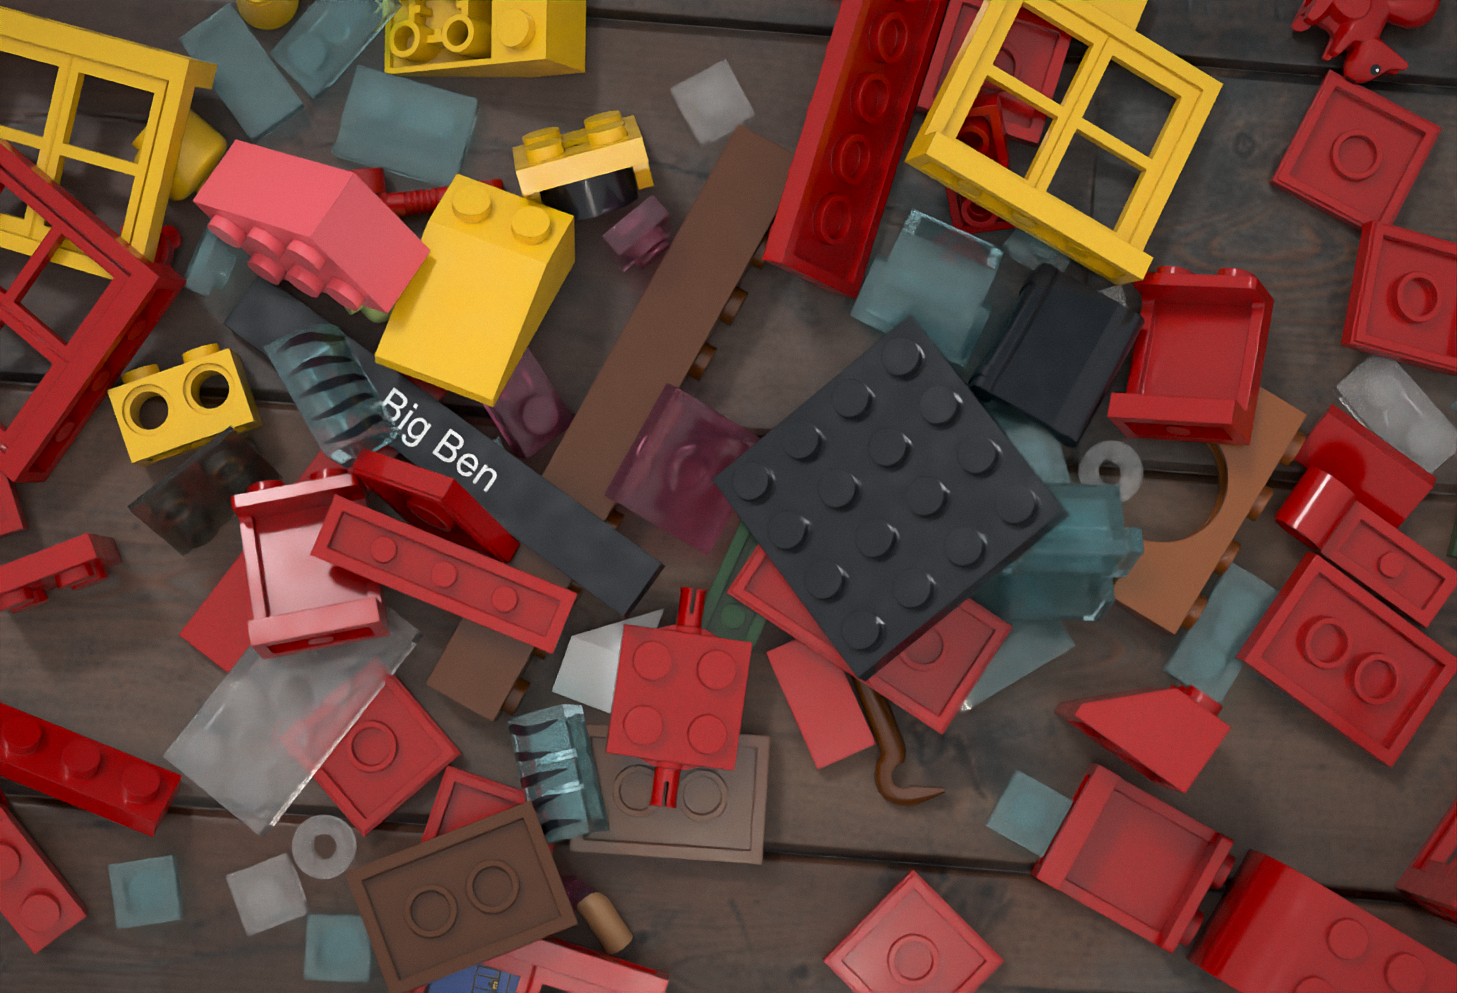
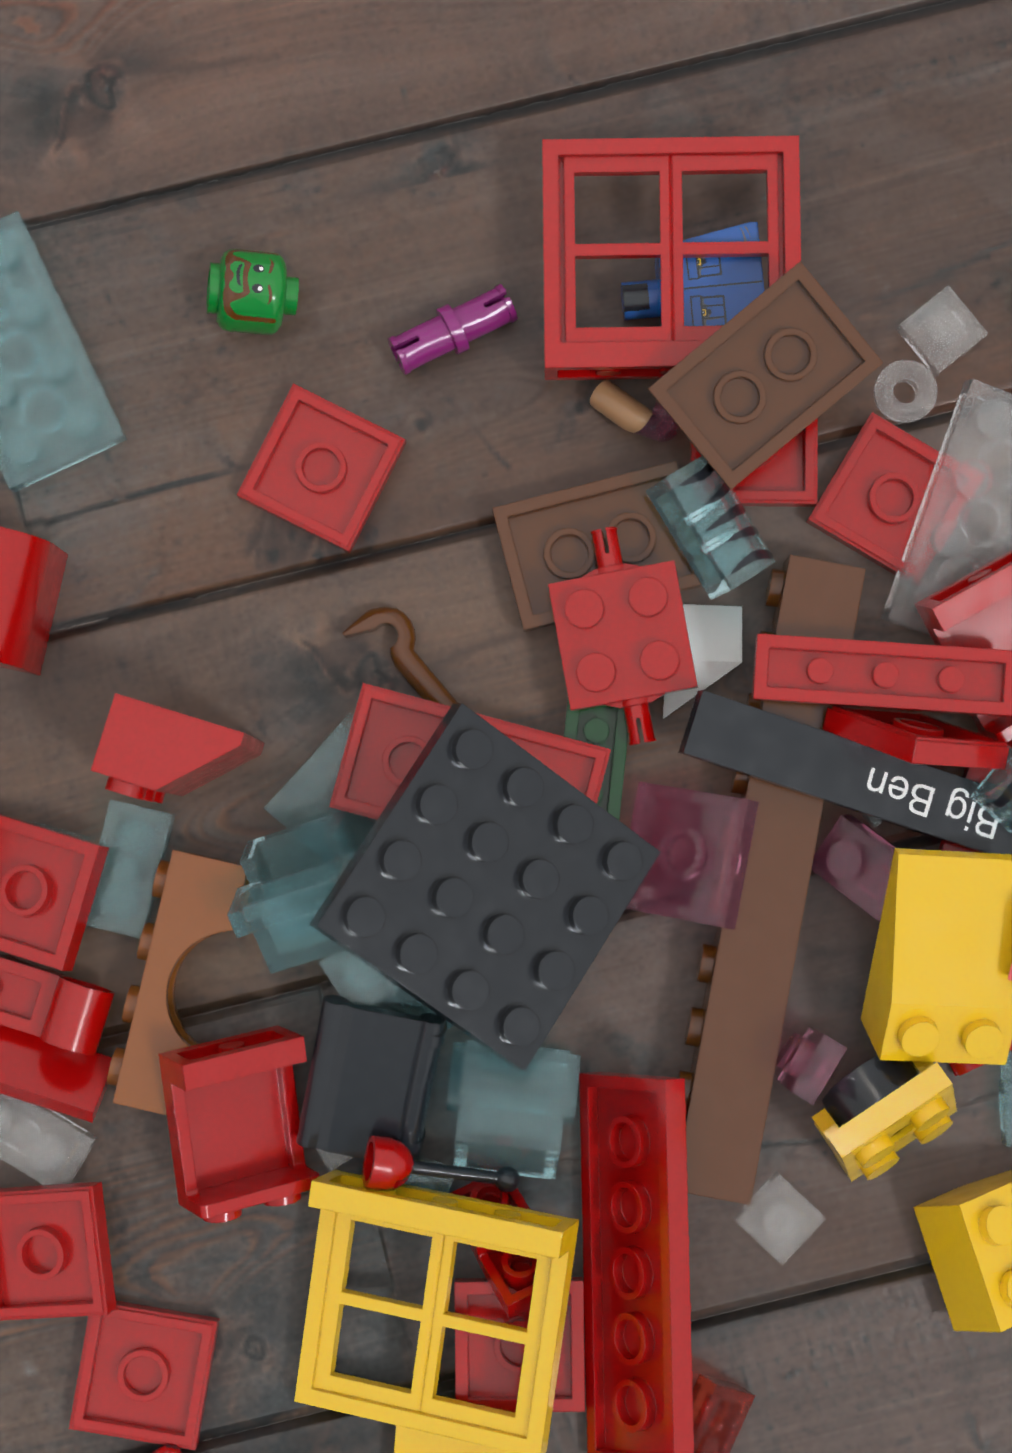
camera: 165 degrees right, 0 degrees up
(337, 948) = (864, 298): clear light blue plate -> none
(820, 703) = (486, 676): red tile -> none
(1028, 813) = (257, 638): clear light blue plate -> none
(1062, 271) = (390, 1164): none -> hinge
(1123, 456) = (282, 1008): clear plate -> none
(1135, 859) = (144, 629): red panel -> none

